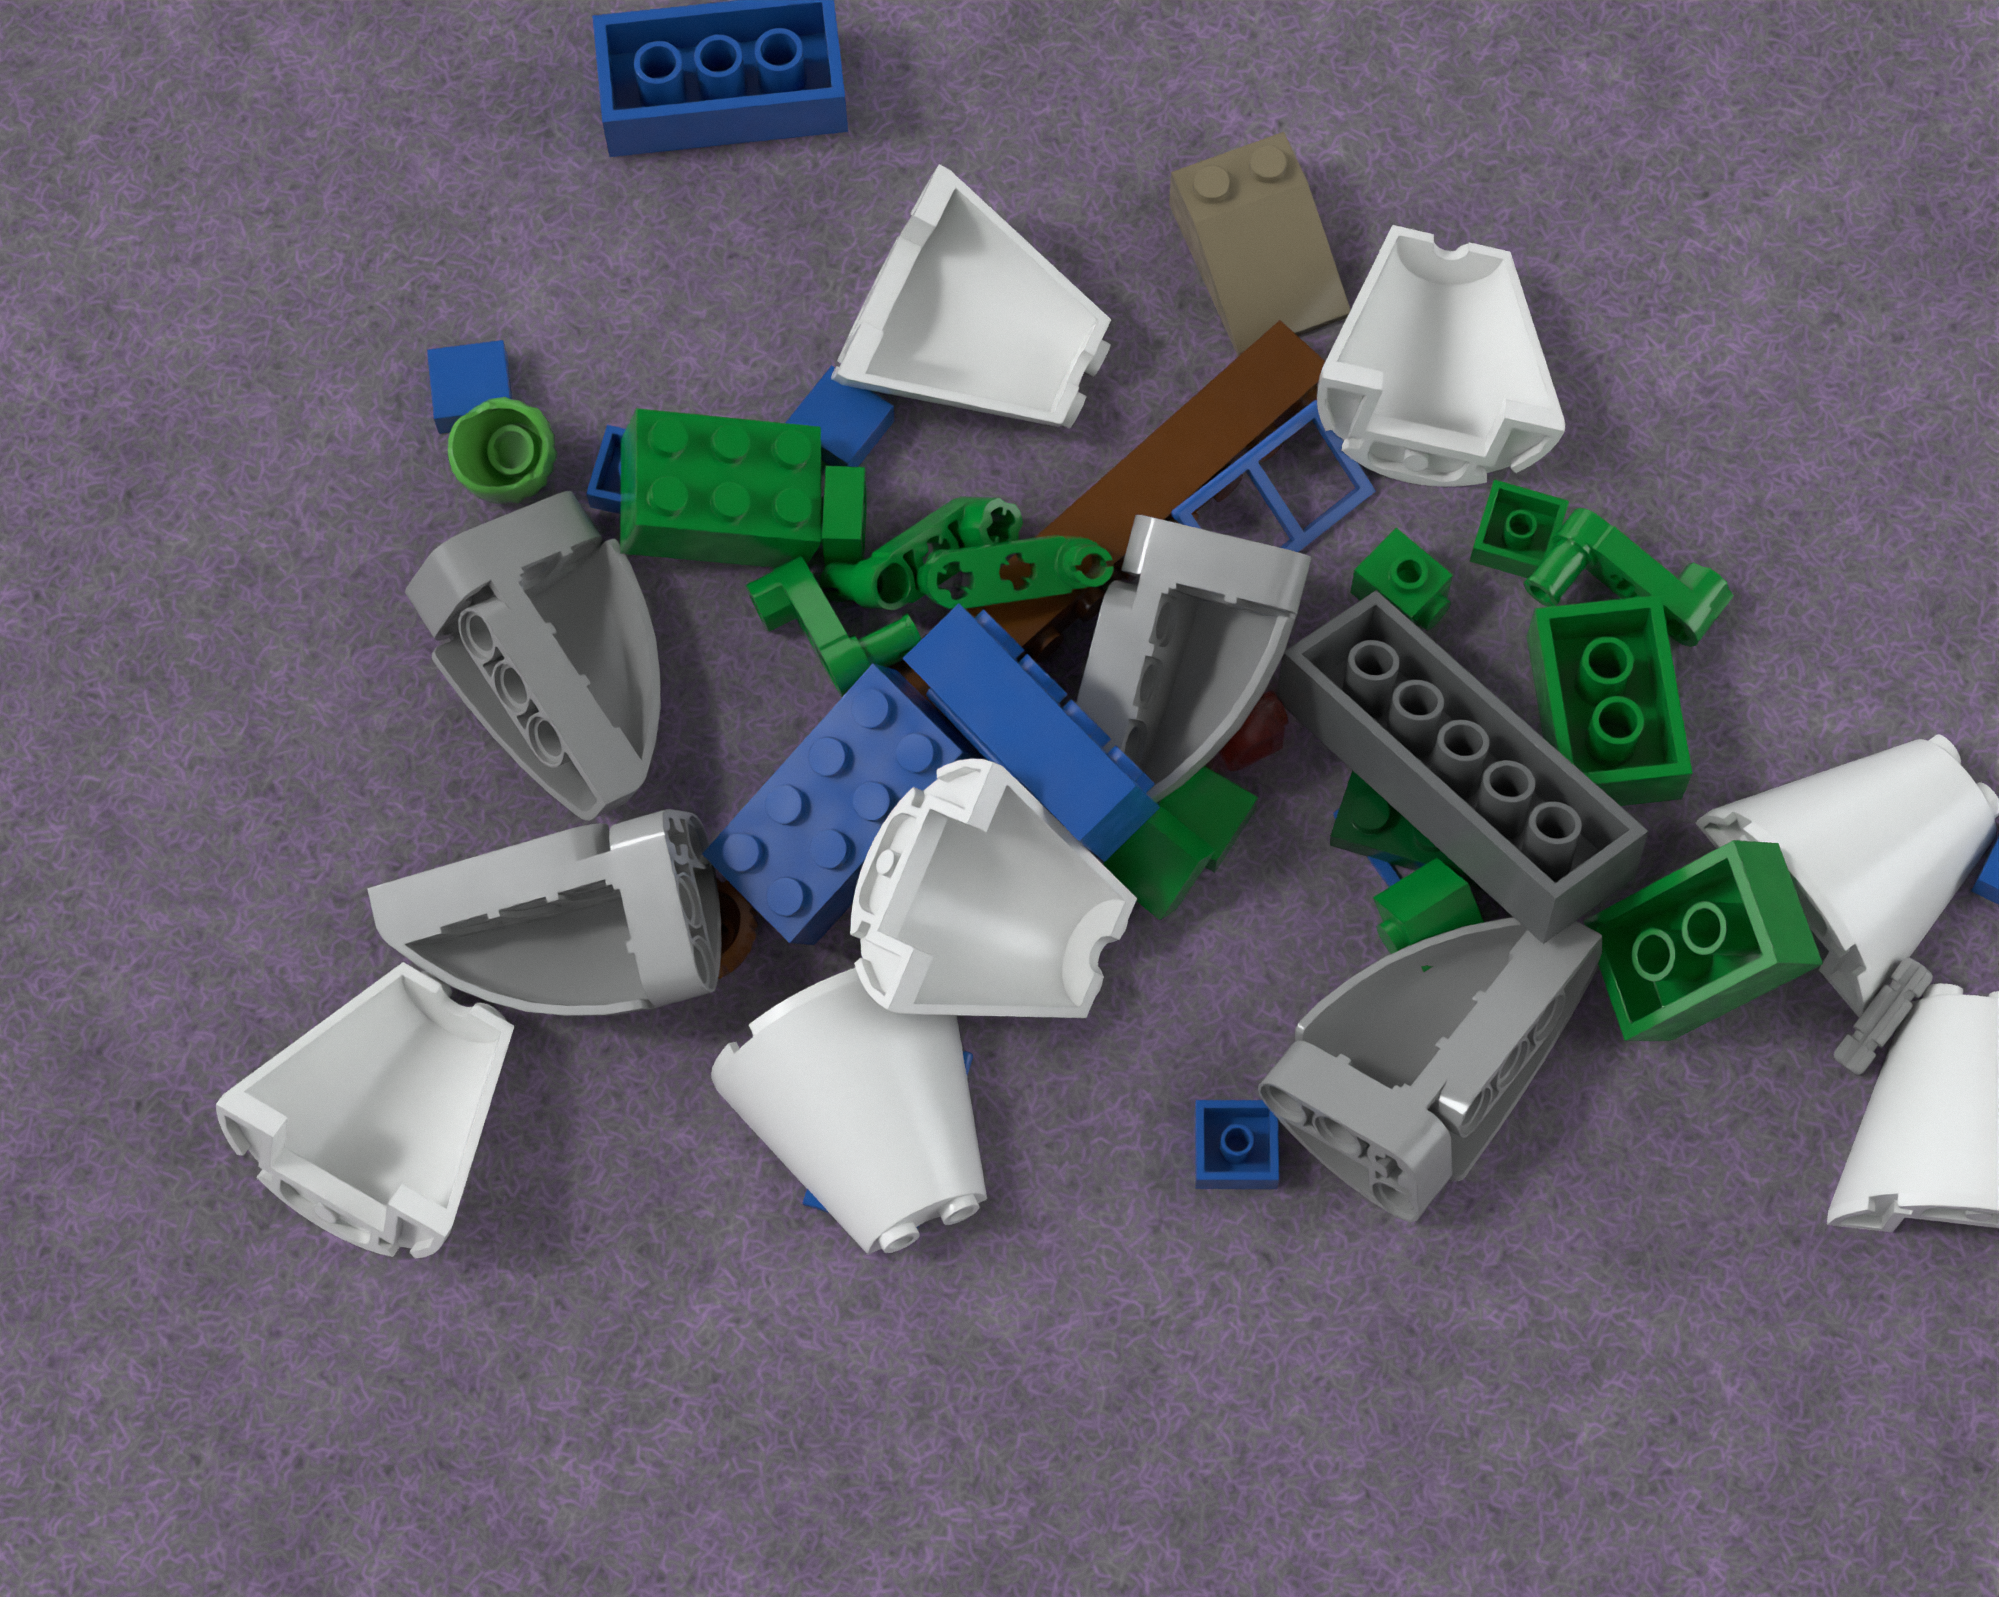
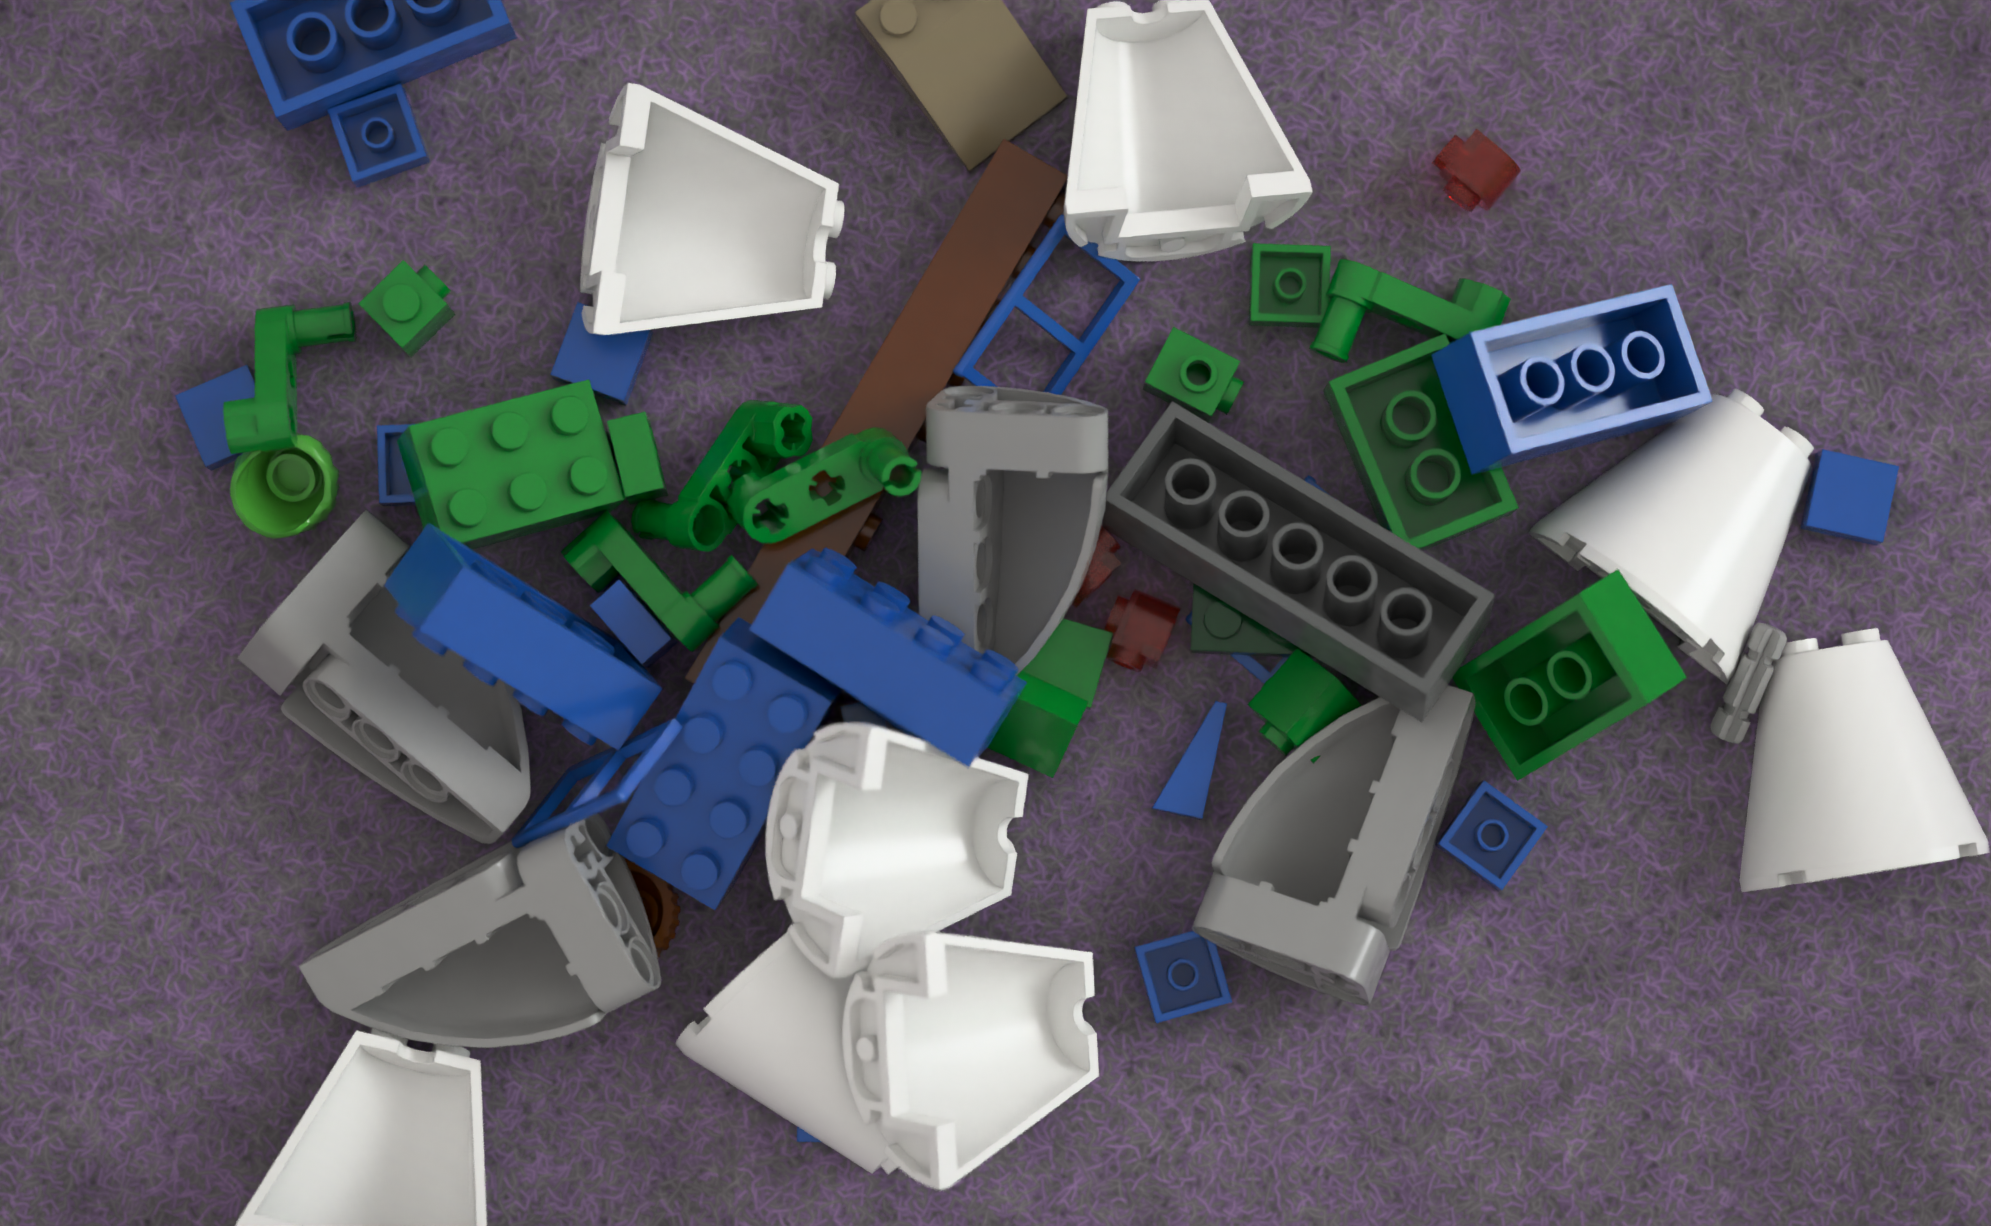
camera: 20 degrees left, 15 degrees up
(513, 372) = (280, 333): none -> green beam
(671, 328) = (409, 306): none -> green brick
(676, 615) = (521, 638): none -> blue brick
(692, 180) = (378, 135): none -> blue piece
(724, 776) = (604, 766): none -> blue window
(794, 665) = (633, 623): none -> blue piece
(1001, 1118) = (965, 1045): none -> white cone
(1286, 805) = (1140, 630): none -> clear red plate
(1294, 961) = (1190, 781): none -> blue piece
(1584, 1095) = (1491, 835): none -> blue piece
(1728, 470) = (1475, 171): none -> clear red plate
(1775, 666) = (1571, 378): none -> blue brick

